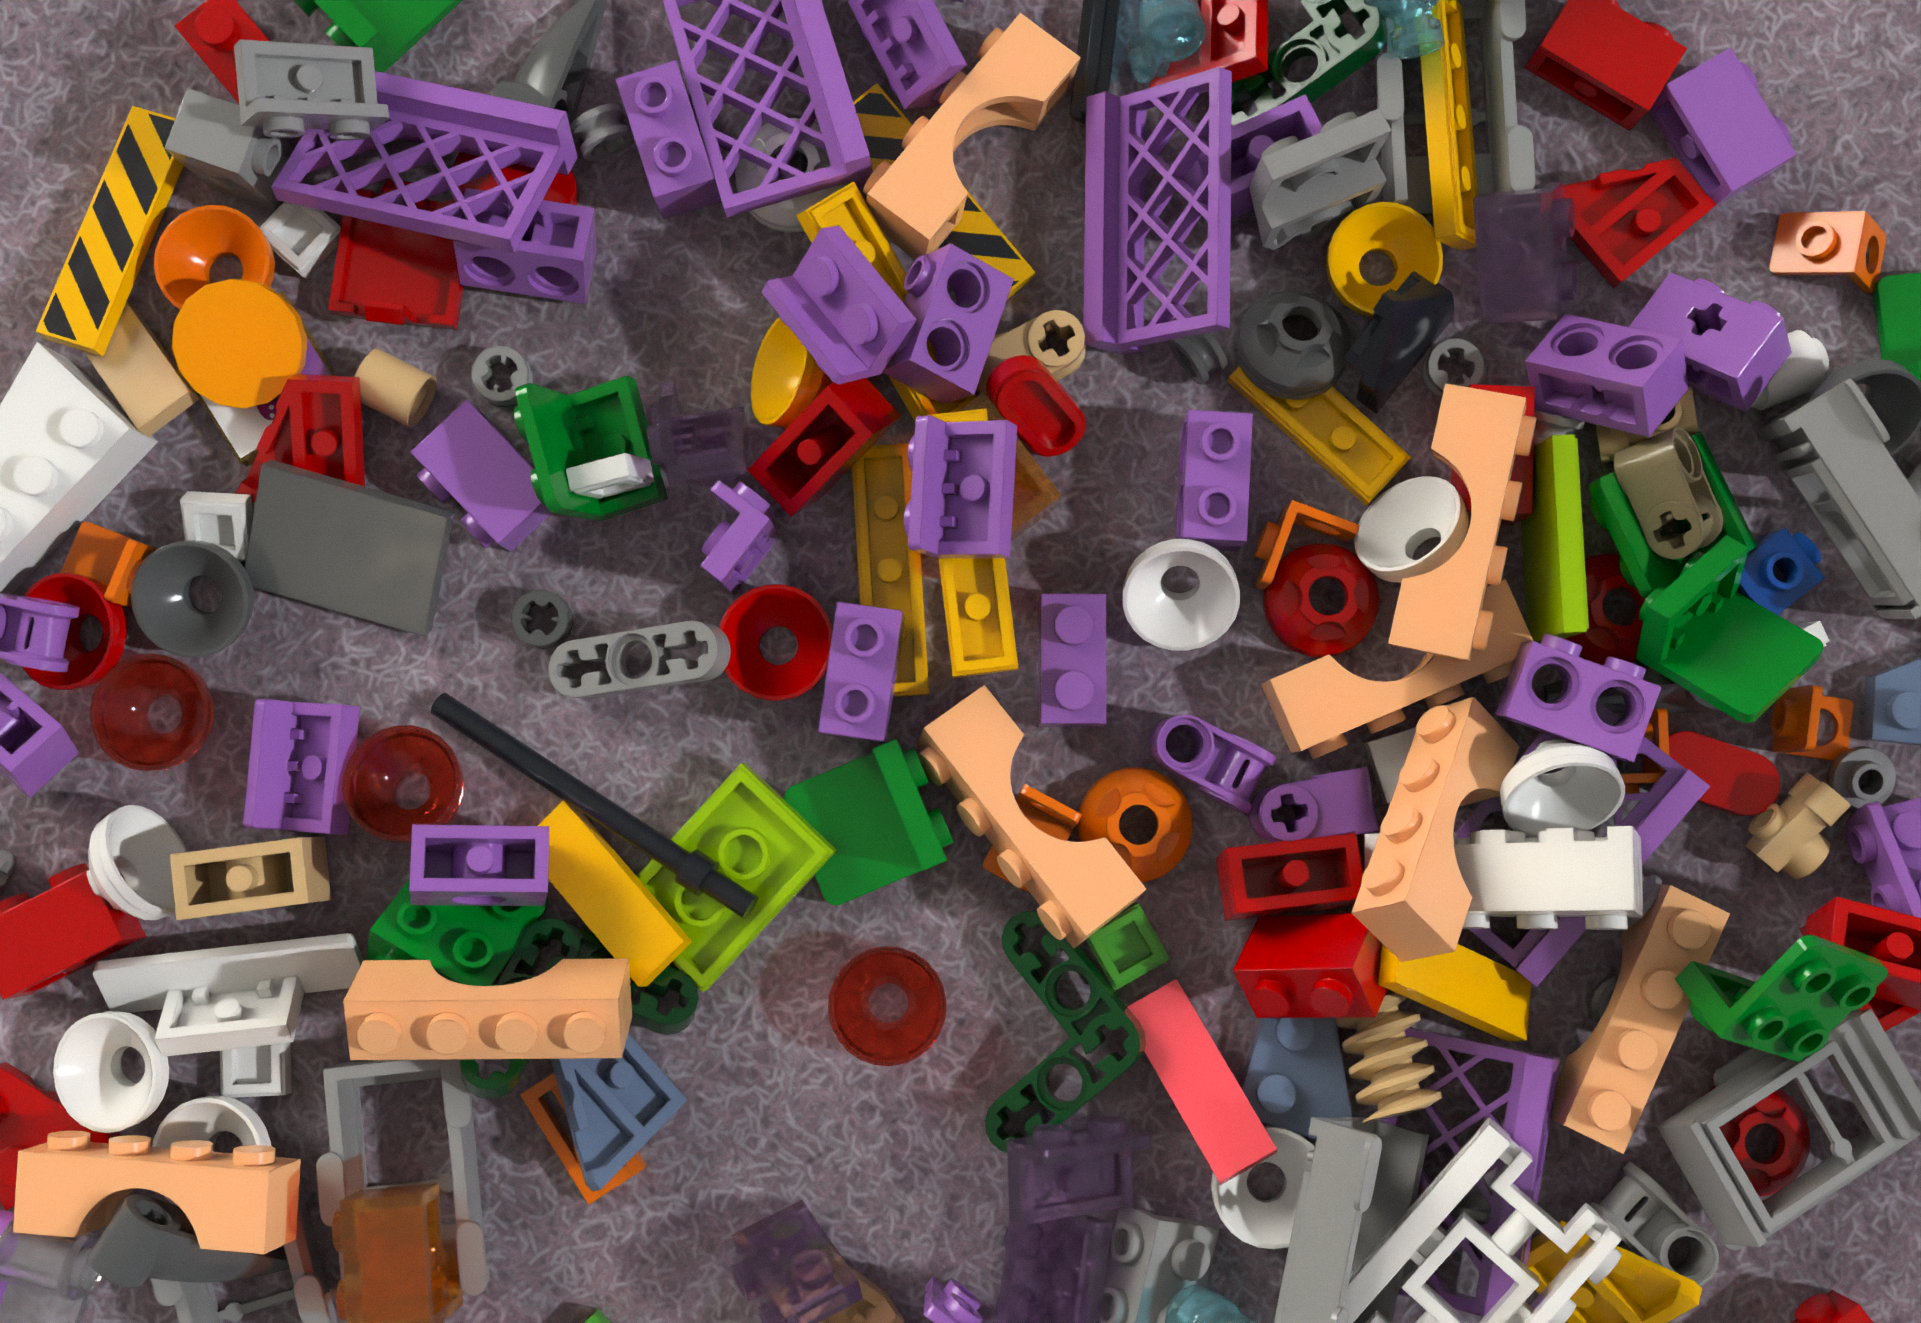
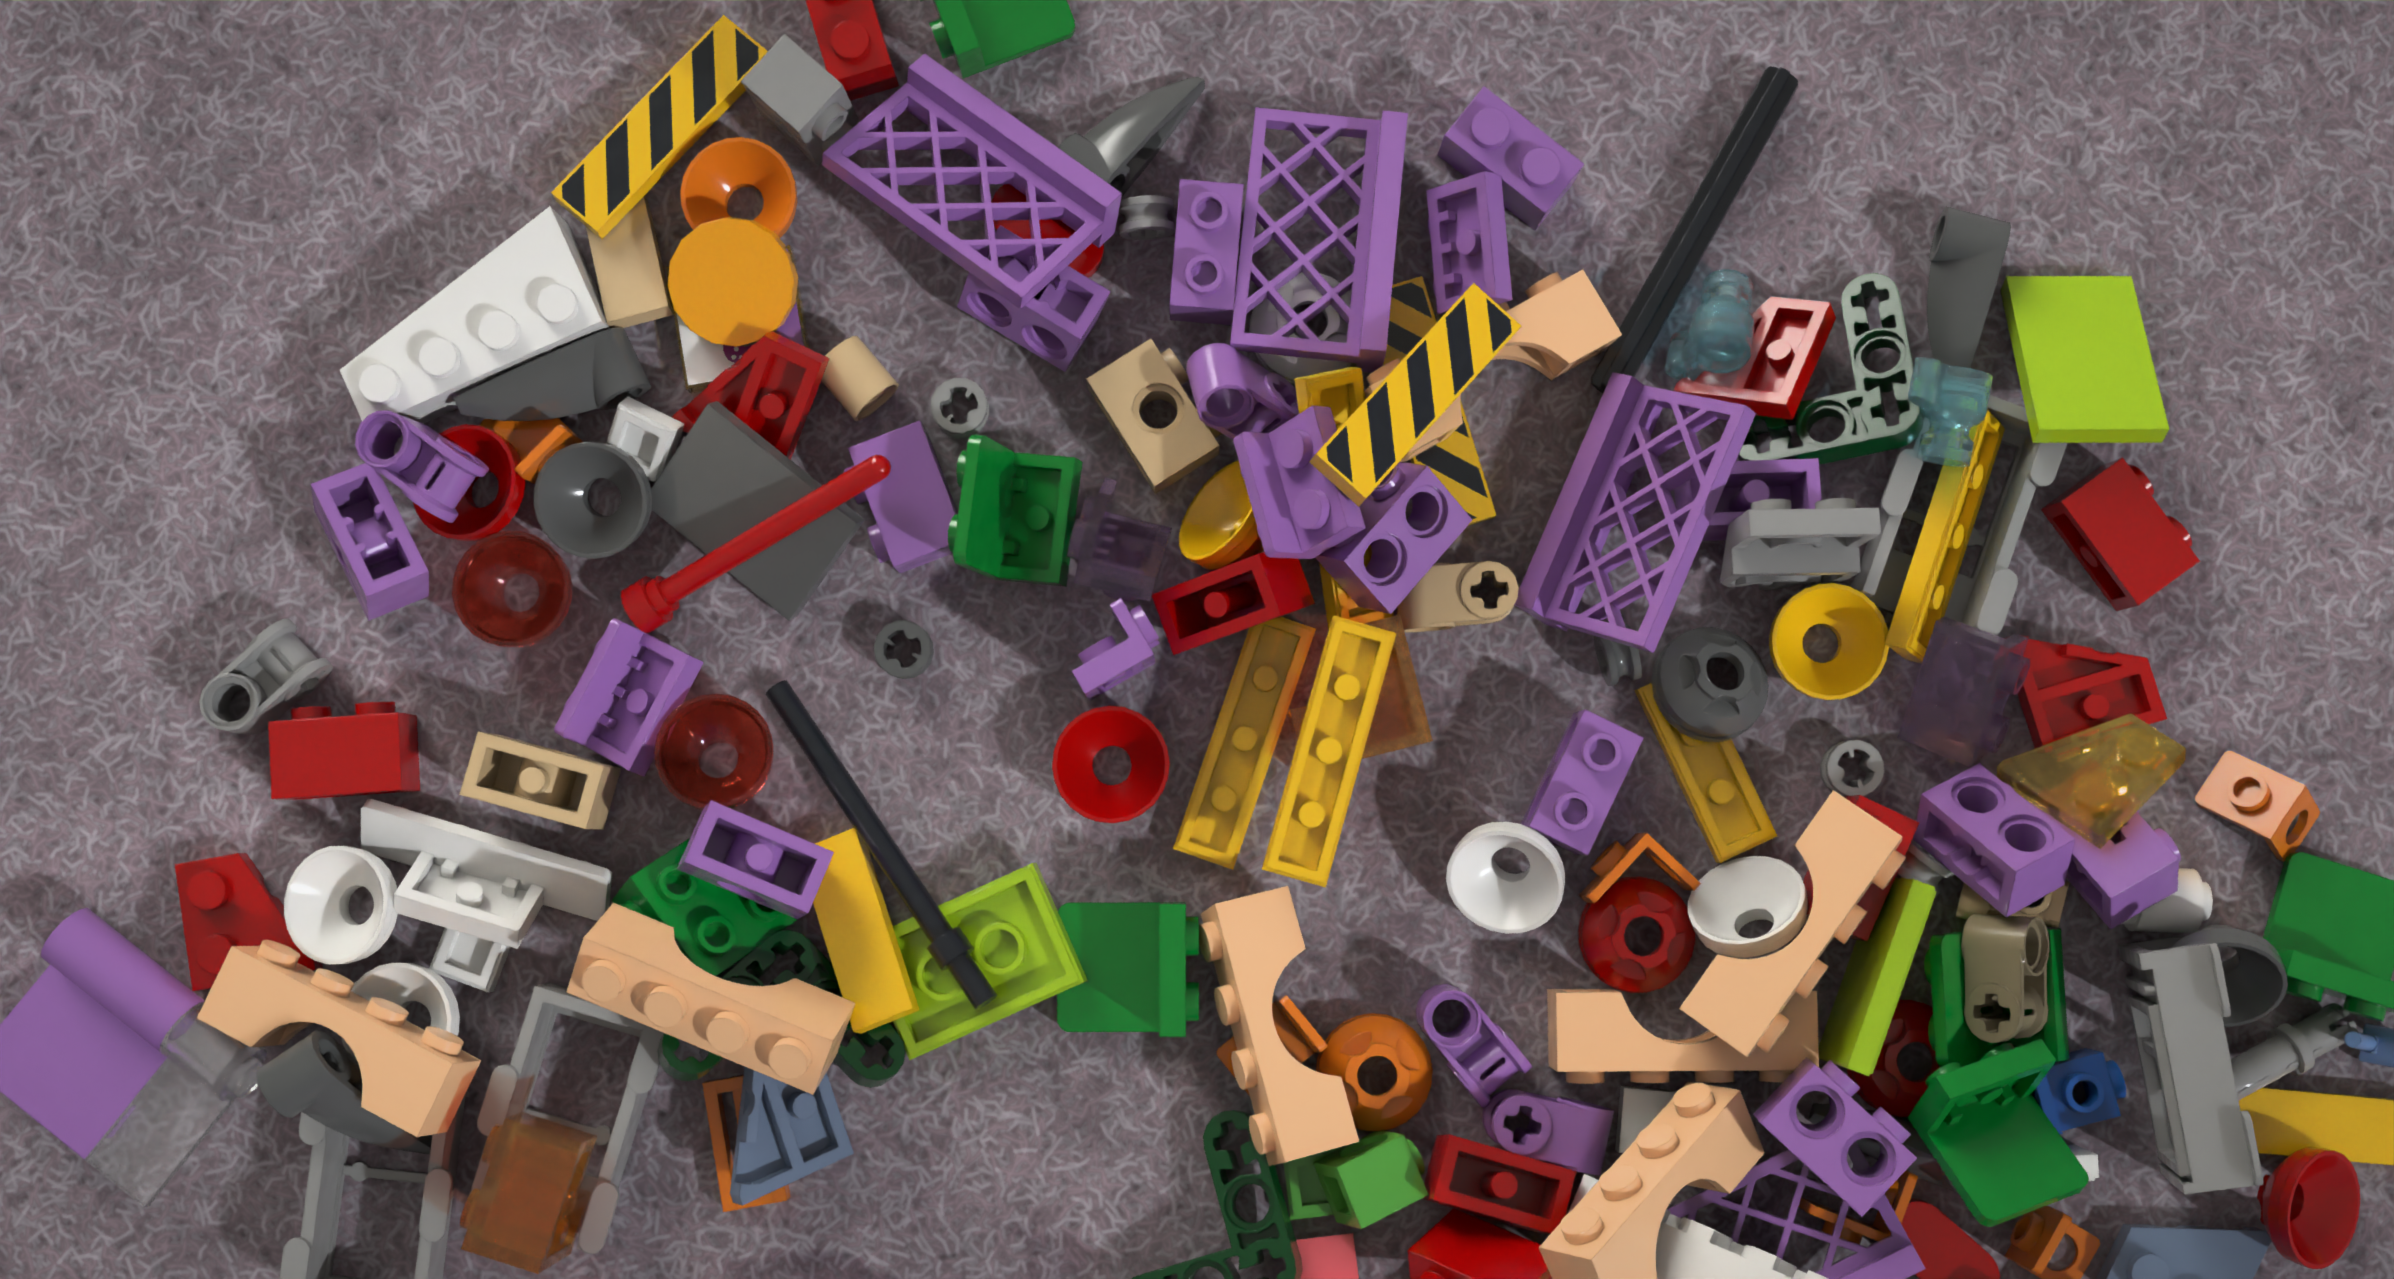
camera: 25 degrees right, 0 degrees up
(119, 502) = (563, 383): none -> dark grey piece
(140, 848) = (442, 723): white piece -> none
(290, 670) = (652, 601): none -> red piece
(301, 236) = (828, 201): white tile -> none
(308, 87) = (896, 77): light grey bracket -> none
(396, 272) = (900, 273): red piece -> none
(610, 476) = (1022, 548): white tile -> none
(657, 280) = (1127, 387): none -> tan brick
(663, 671) = (942, 700): light grey beam -> none
(759, 252) = (1237, 392): none -> medium lavender piece
(861, 672) = (1178, 828): medium lavender brick -> none
(872, 1038) = (1068, 1180): clear red piece -> none
(911, 181) = (1415, 394): none -> tile
(961, 488) = (1342, 701): medium lavender bracket -> none
(1037, 403) = (1444, 644): red tile -> none
(1072, 660) = (1378, 896): medium lavender brick -> none
(1172, 919) = (1372, 1178): none -> bright green brick
(1399, 336) = (1812, 719): black slope -> none
(1574, 797) = (1784, 1212): white piece -> none
(1676, 278) = (2096, 775): none -> clear yellow wing
(1722, 127) = (2204, 647): medium lavender brick -> none

